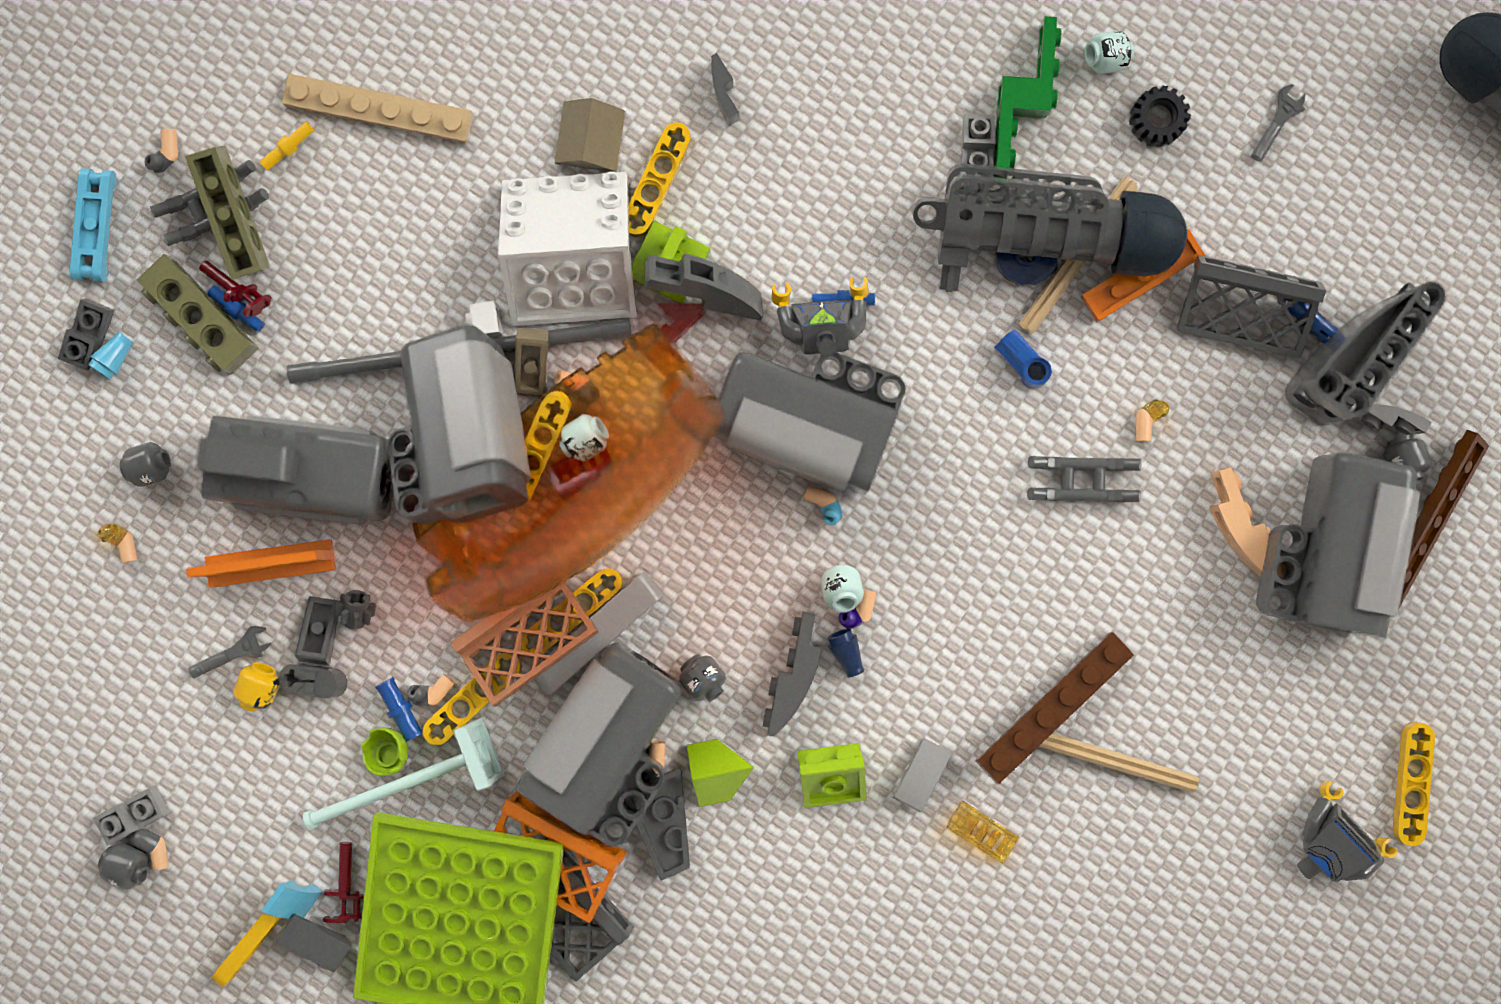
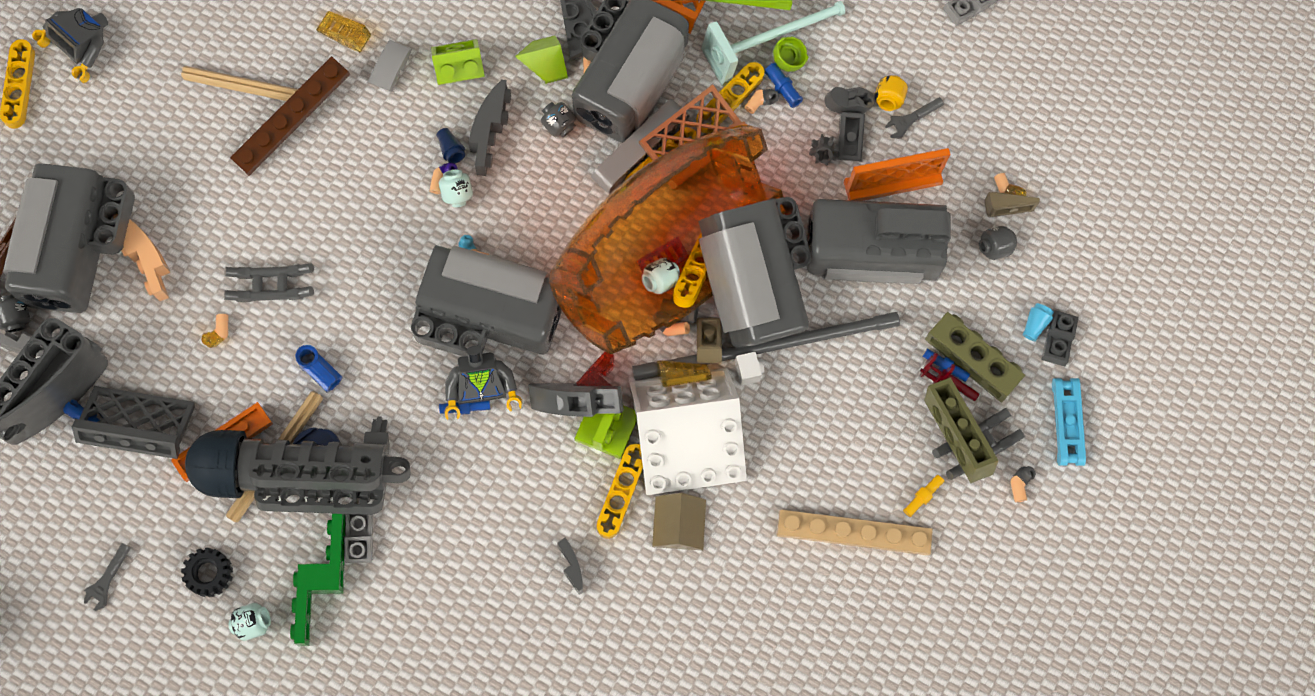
camera: 170 degrees right, 15 degrees down
(133, 517) = (1006, 204): none -> dark tan slope
(582, 312) = (679, 373): none -> clear yellow slope

